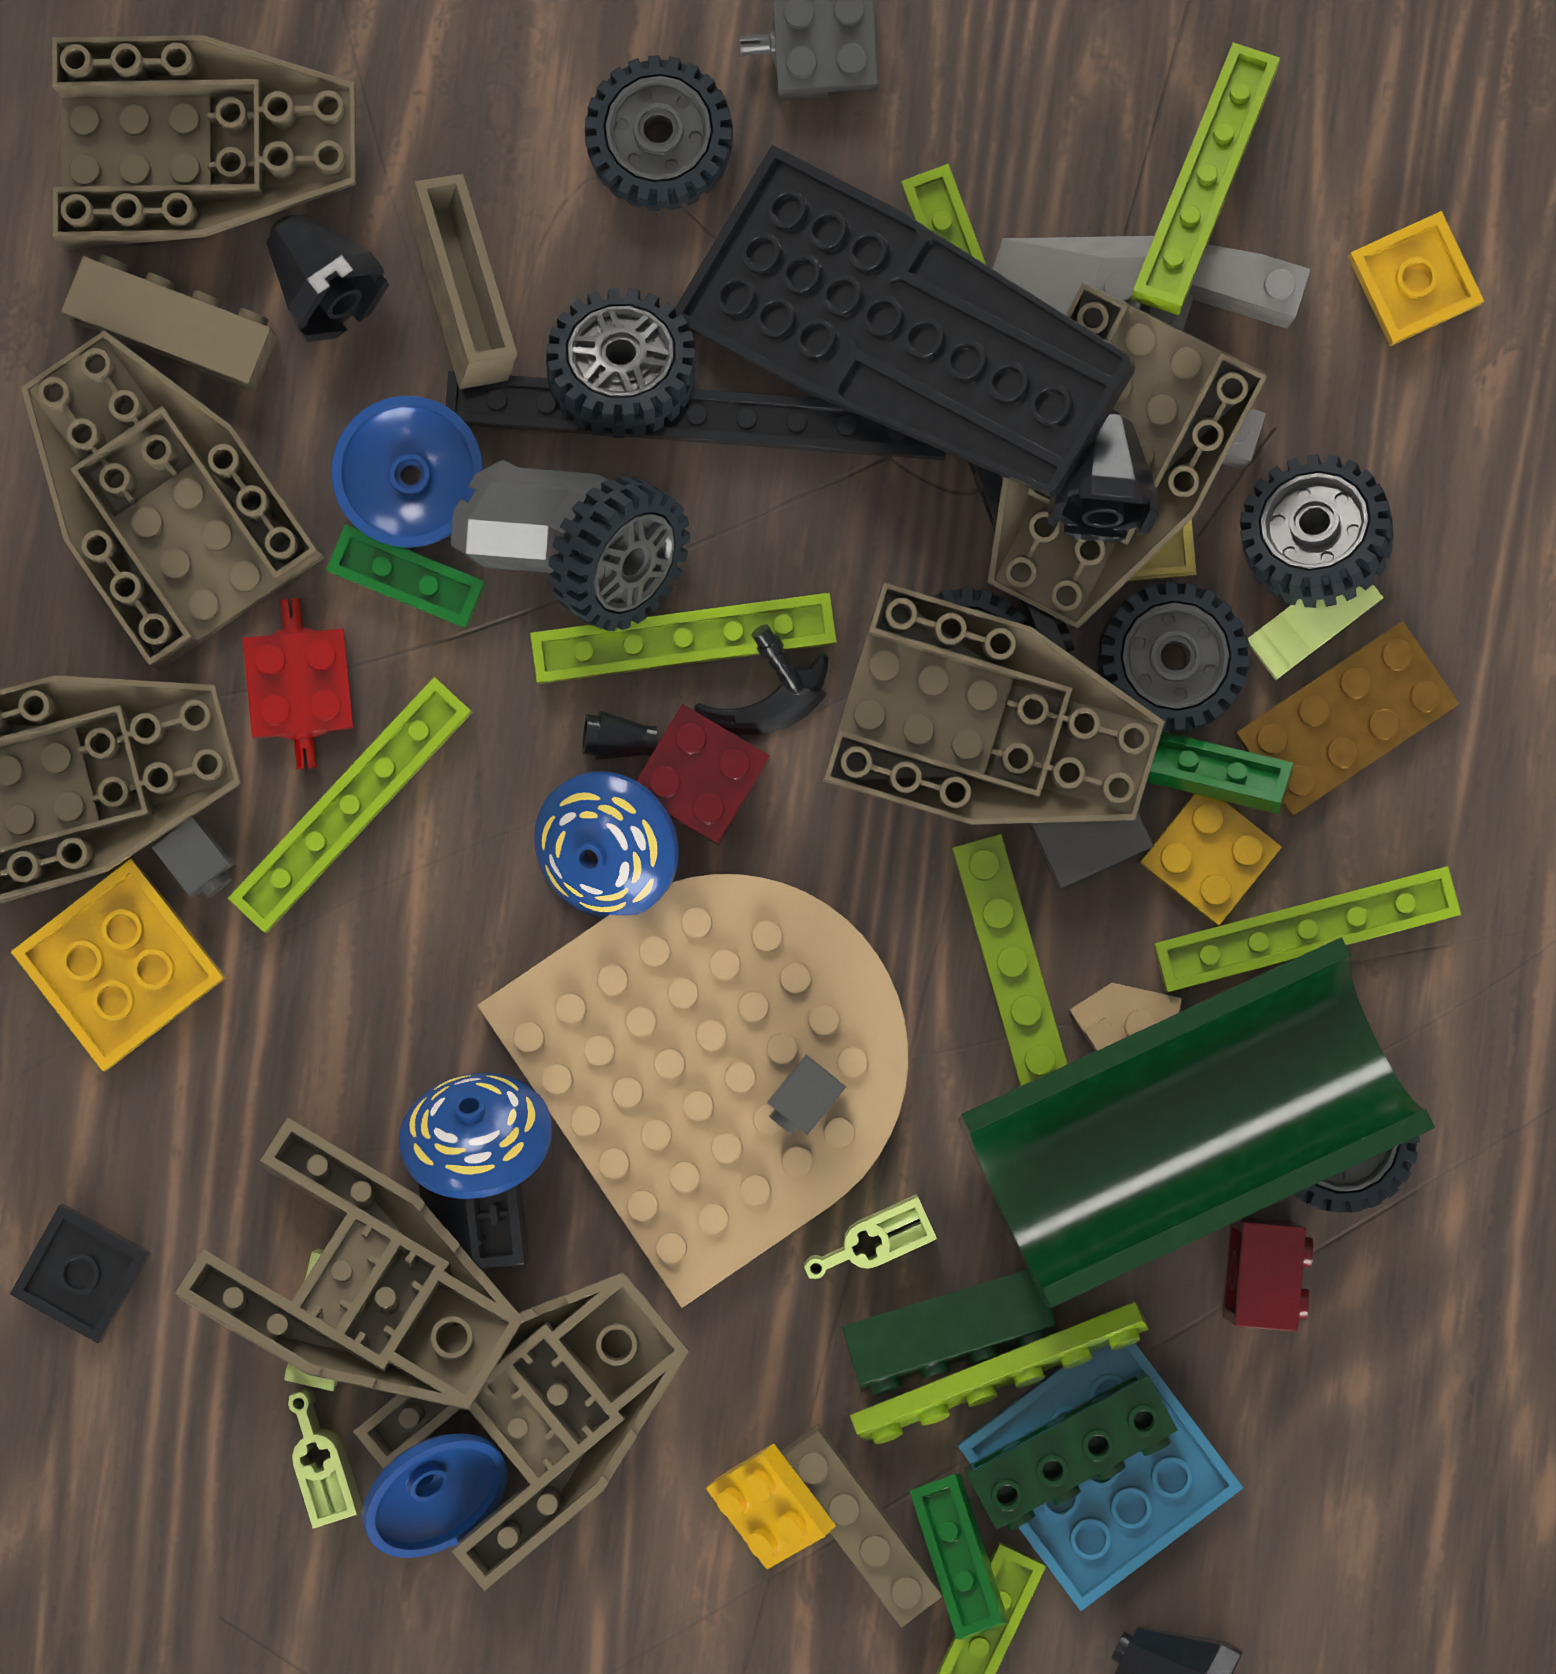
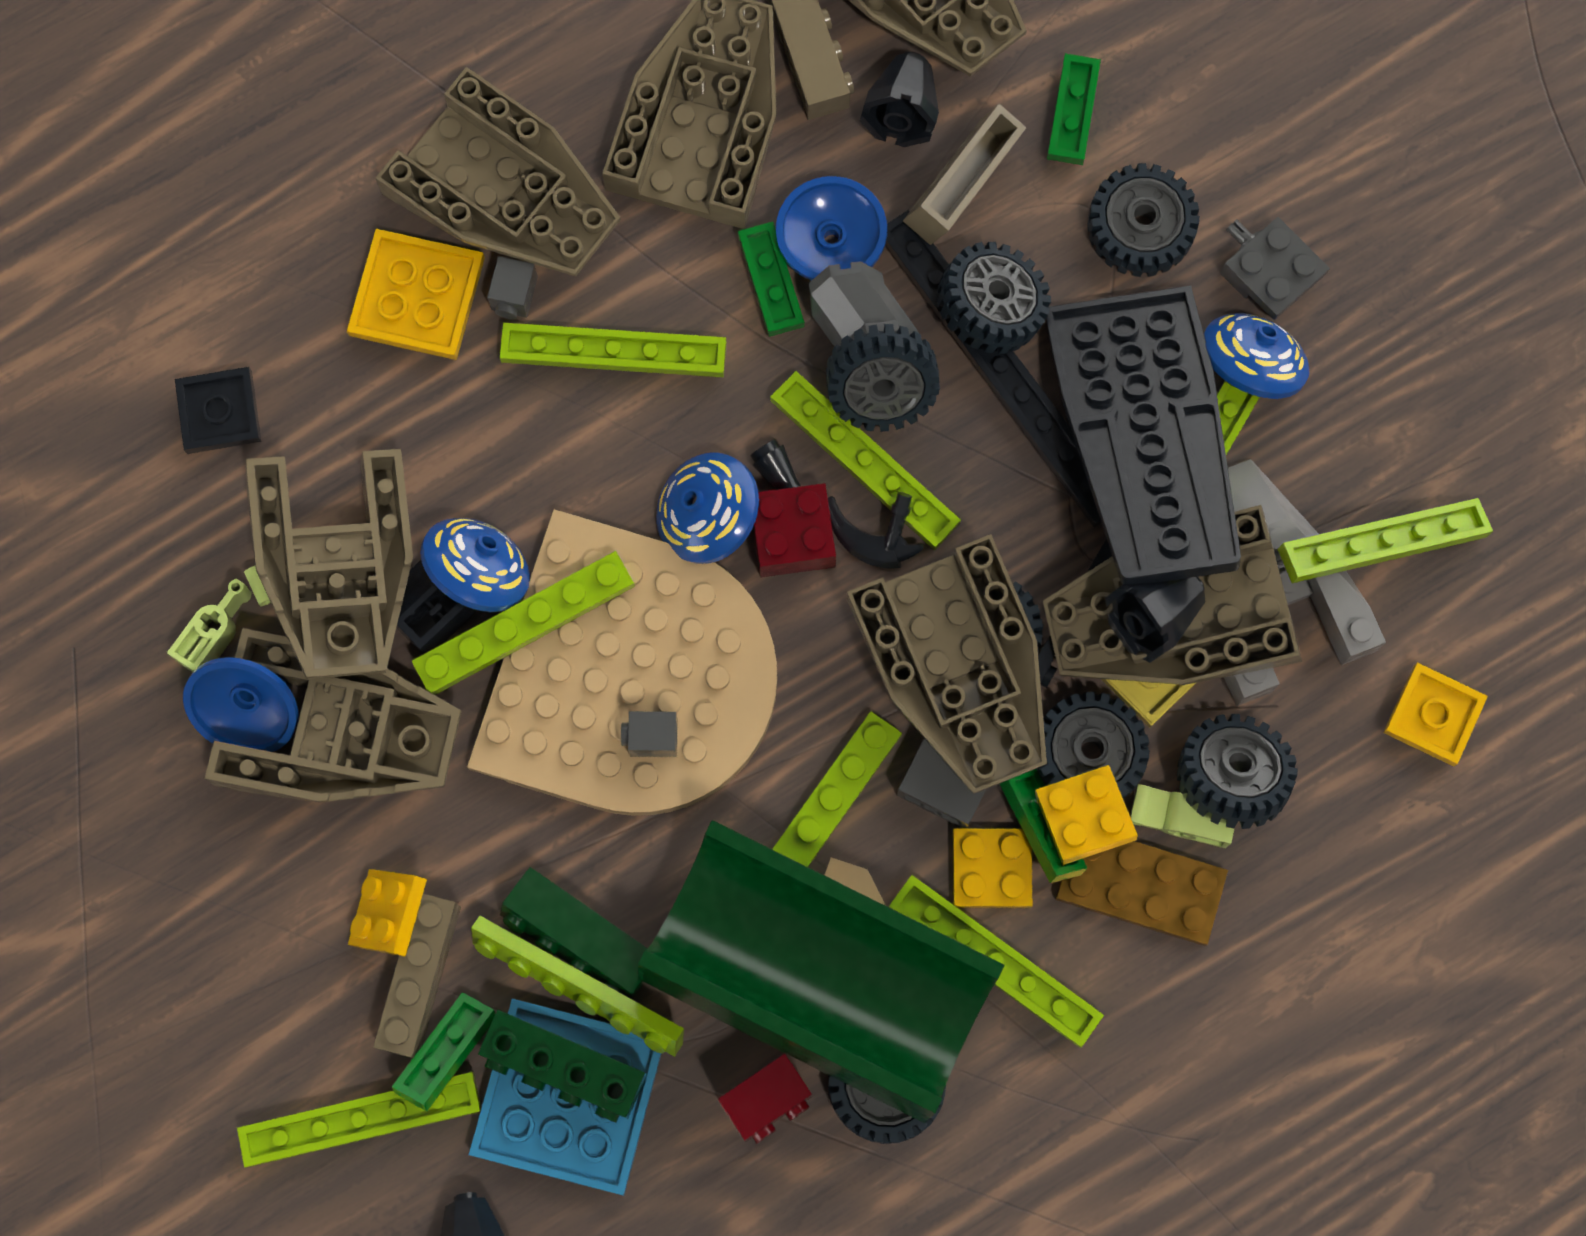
camera: 45 degrees right, 10 degrees down
(298, 683) = (659, 268): red plate -> none
(476, 102) = (1073, 109): none -> green plate
(579, 1134) = (523, 623): none -> lime plate
(880, 1224) = (601, 860): yellowish green piece -> none
(904, 143) = (1256, 355): none -> blue dish
(1241, 721) = (1086, 814): none -> yellow plate

